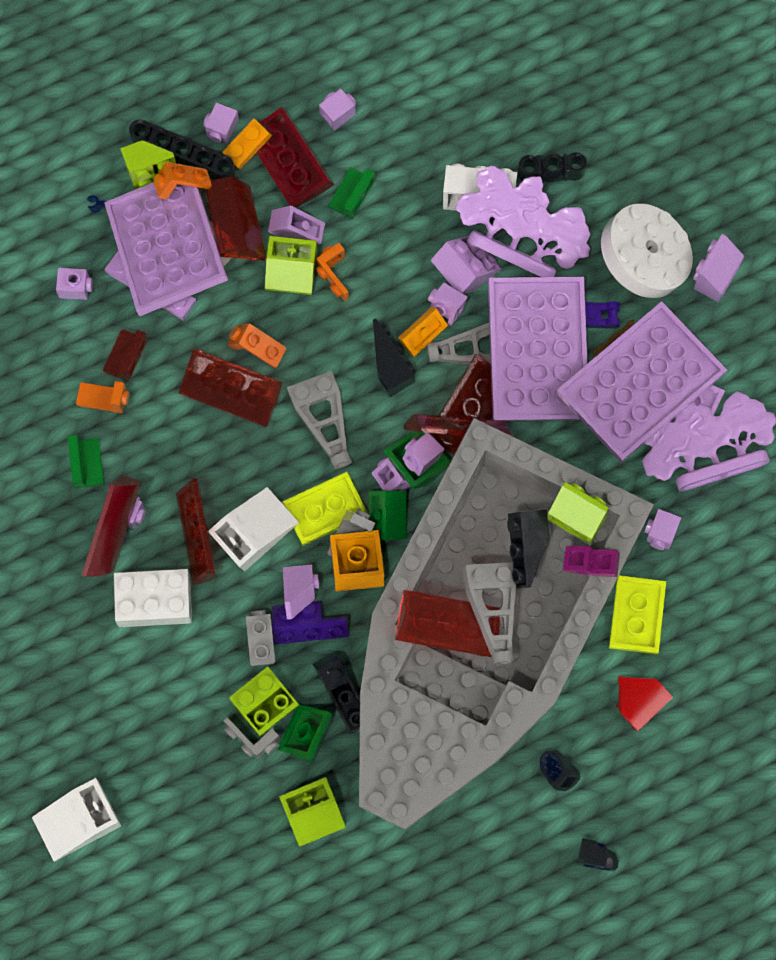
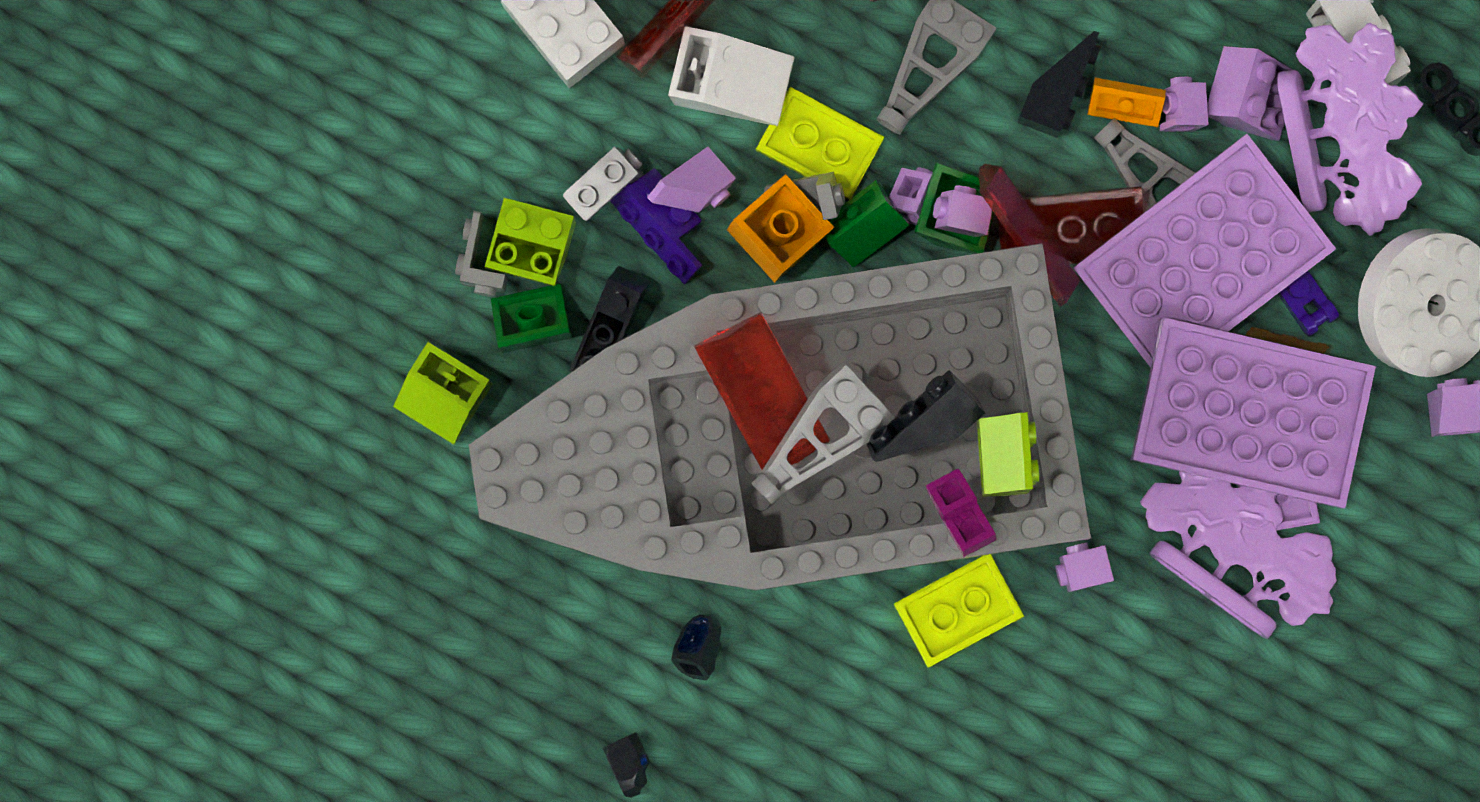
camera: 55 degrees right, 10 degrees up
(76, 819) = (241, 127): white slope -> none
(640, 699) = (855, 685): red slope -> none

